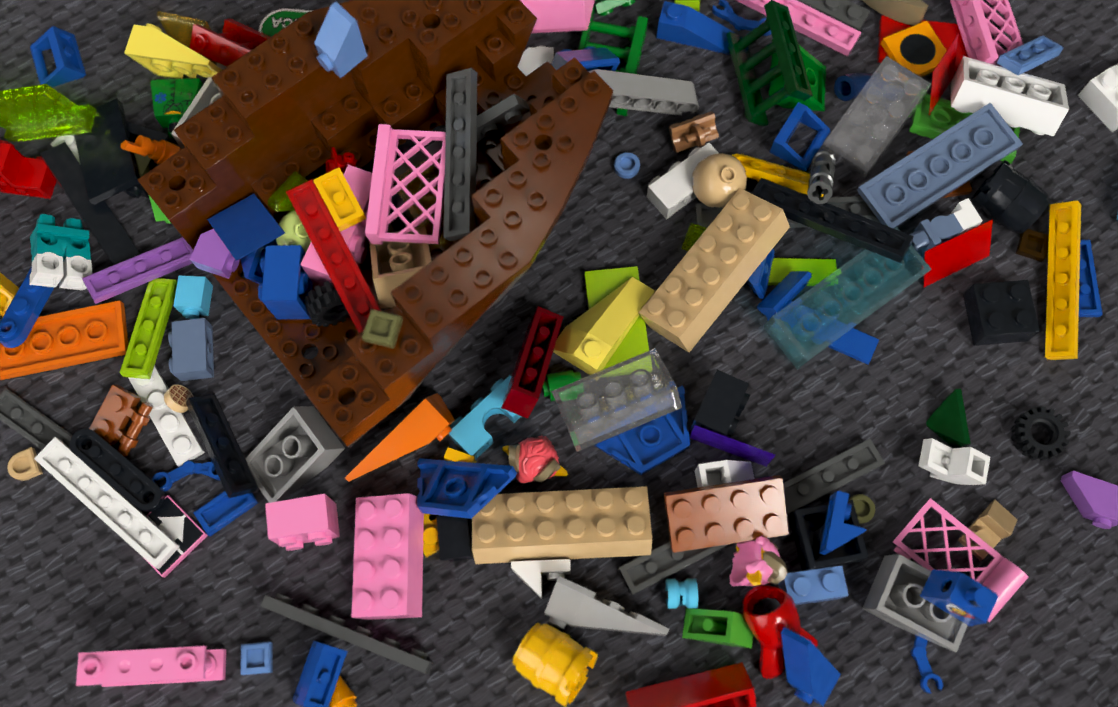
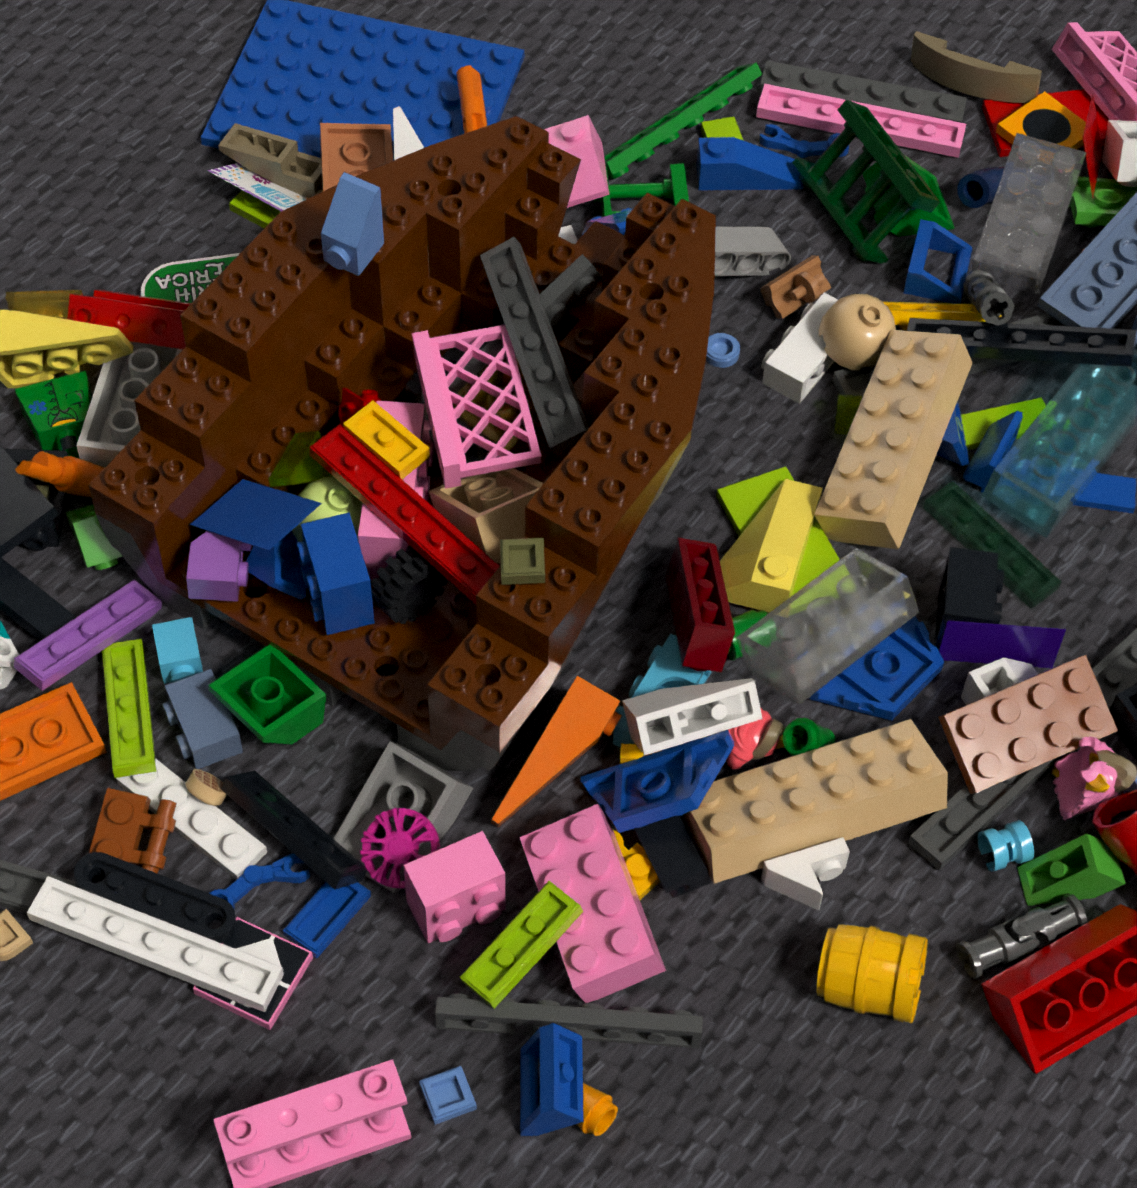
camera: 20 degrees left, 15 degrees down
(231, 351) = (271, 697): none -> green slope
(279, 478) = (397, 846): none -> dark pink wheel
(327, 578) = (521, 944): none -> lime tile
(490, 444) = (690, 713): none -> white slope
(575, 477) = (805, 735): none -> green cone
(579, 608) = (890, 895): light grey wedge -> none
(680, 661) = (1021, 935): none -> dark grey piece
(758, 363) = (981, 532): none -> clear green tile

